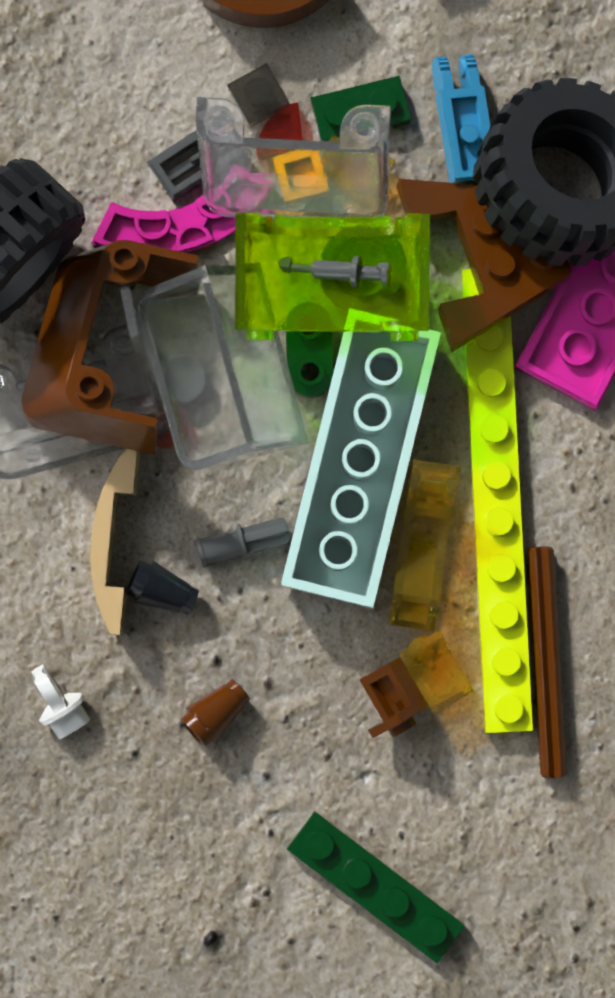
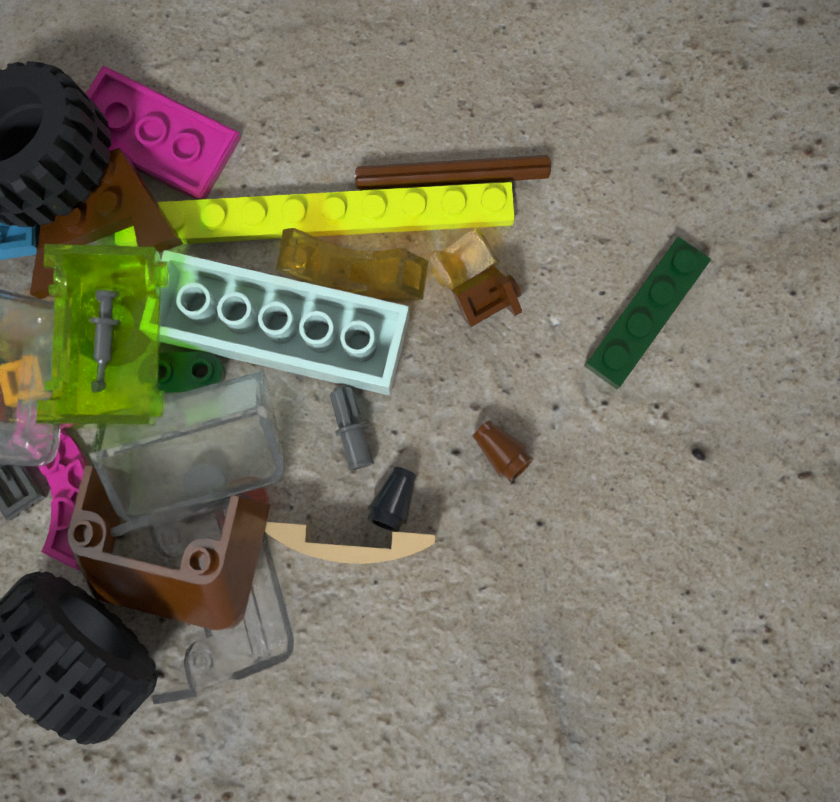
camera: 85 degrees left, 5 degrees down
(63, 711) = (504, 588): white piece -> none

